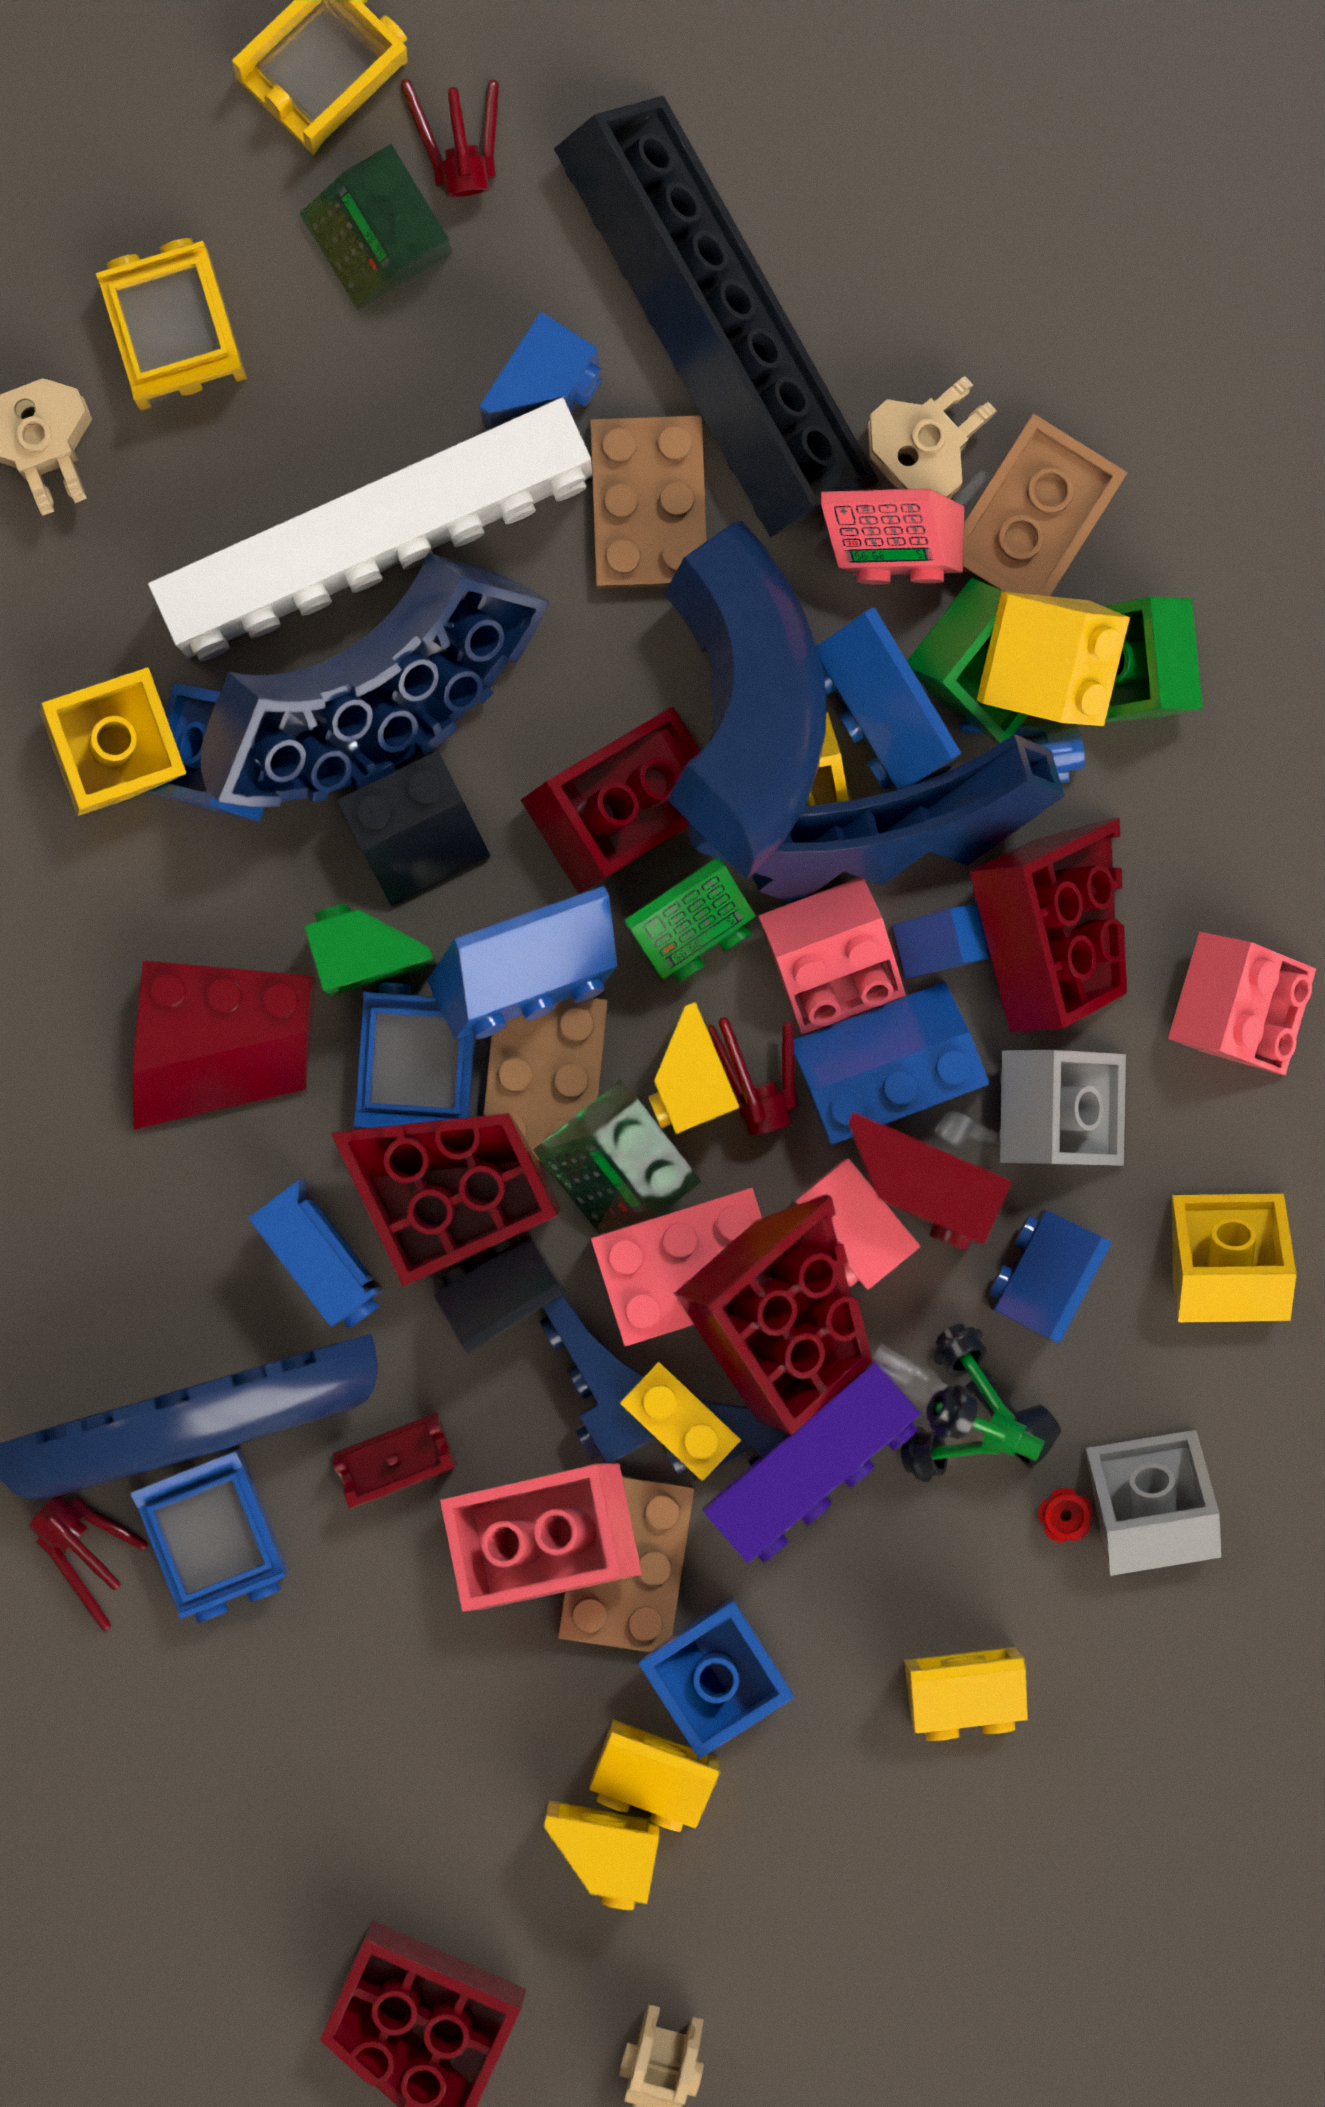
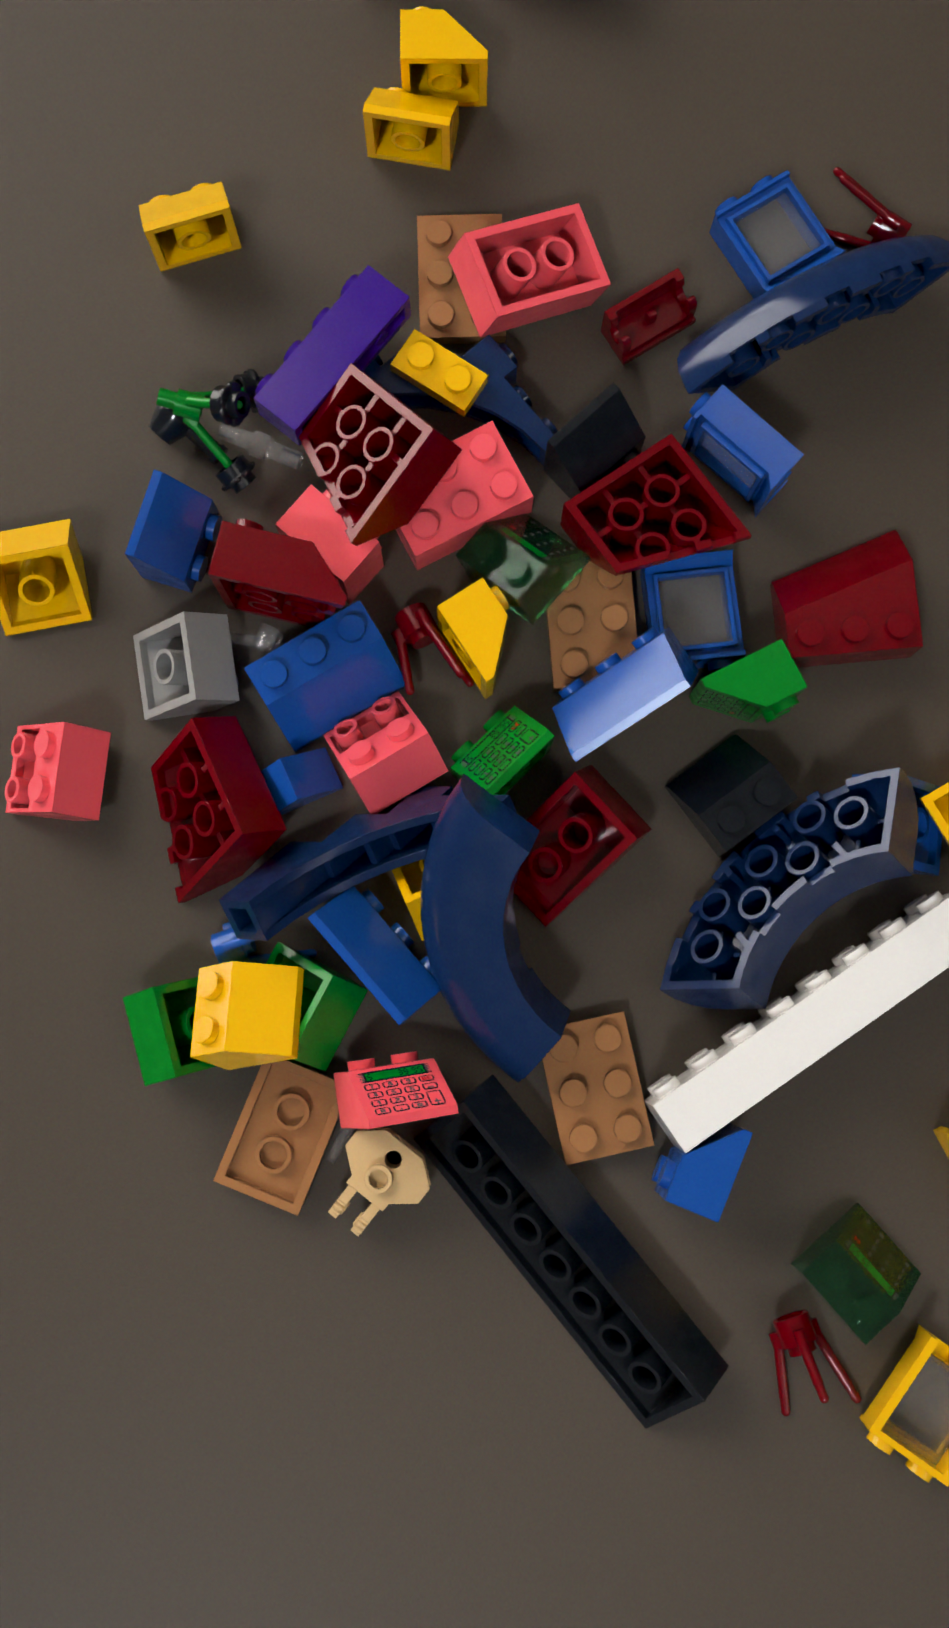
camera: 170 degrees right, 5 degrees down
(716, 1677) = (377, 198): blue slope -> none
(1077, 1526) = (128, 359): red plate -> none
(1154, 1502) = (69, 386): light grey slope -> none

